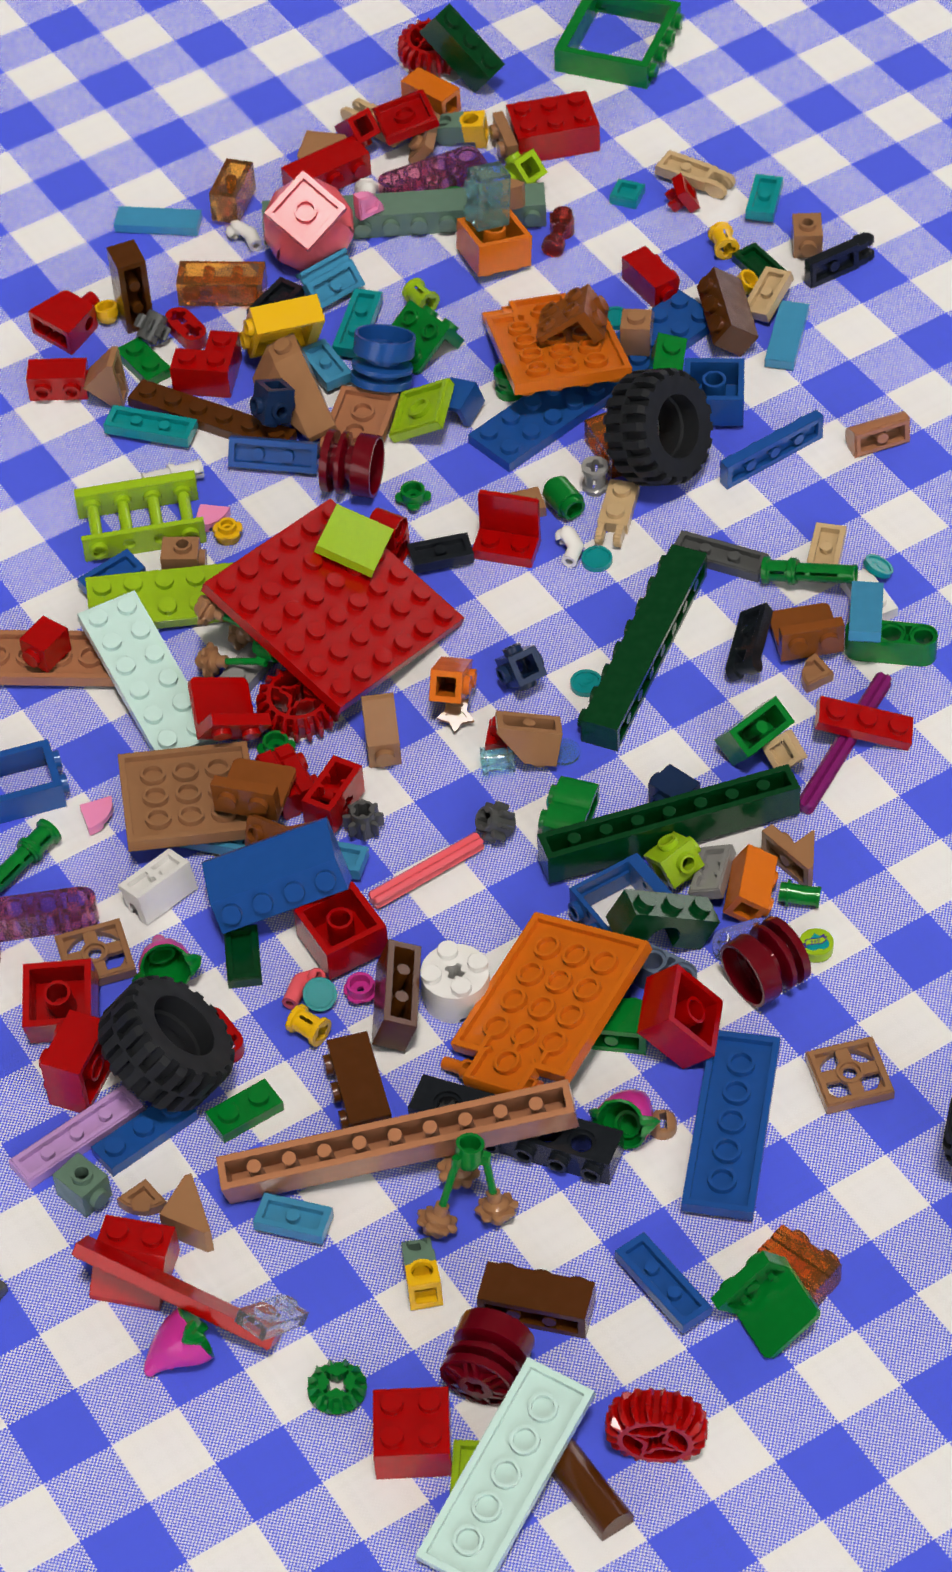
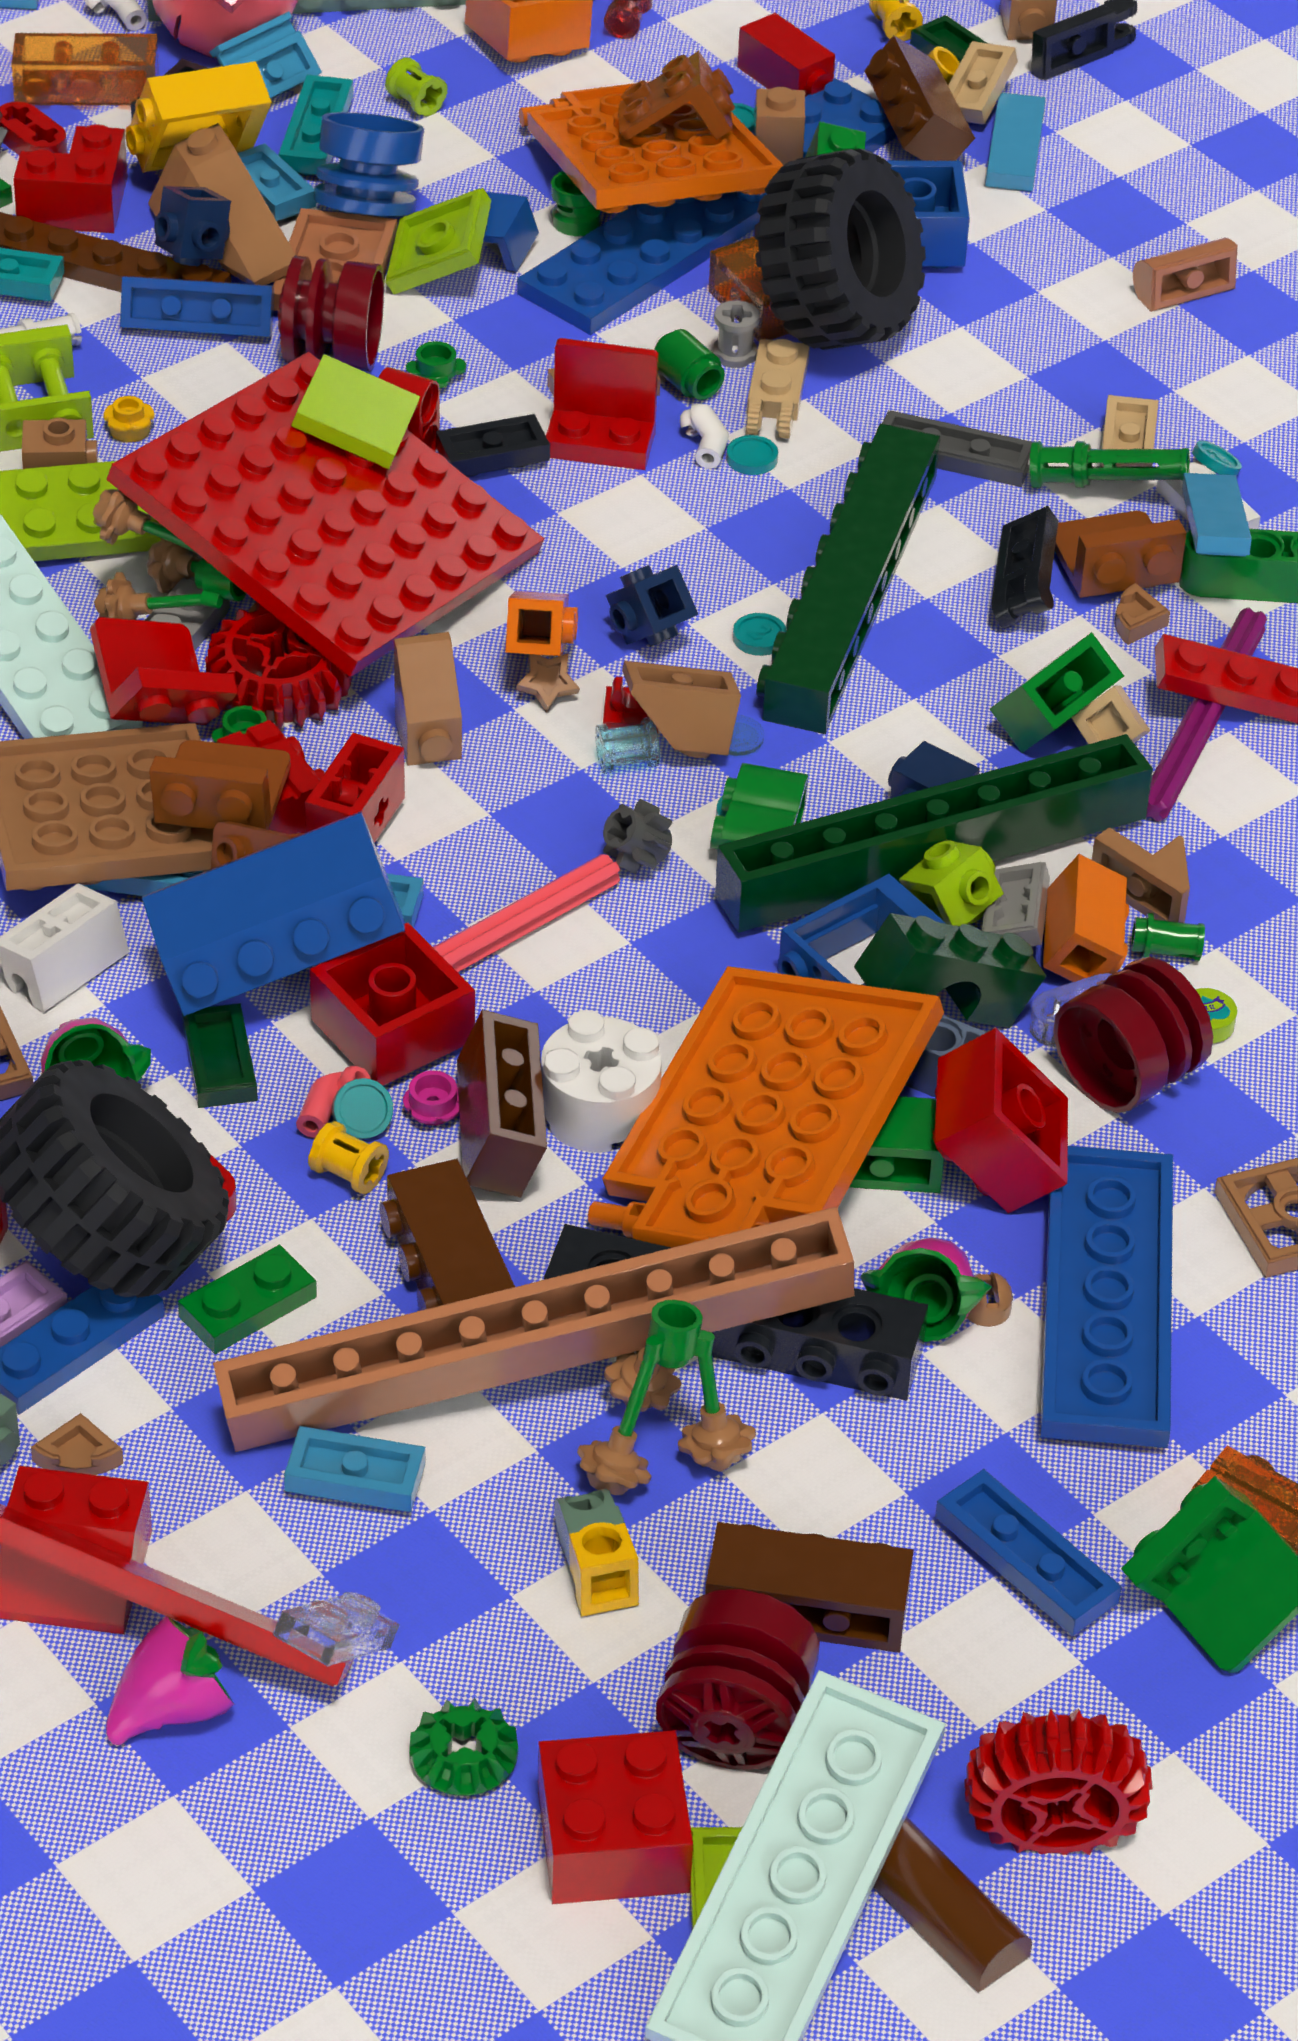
camera: 10 degrees left, 5 degrees down
(188, 1216) = (167, 1460): medium nougat slope -> none
(212, 514) = (103, 393): bright pink tile -> none
(363, 820) = (409, 838): dark grey gear -> none
(429, 332) = (444, 135): green bracket -> none
(771, 449) = (1017, 295): blue plate -> none

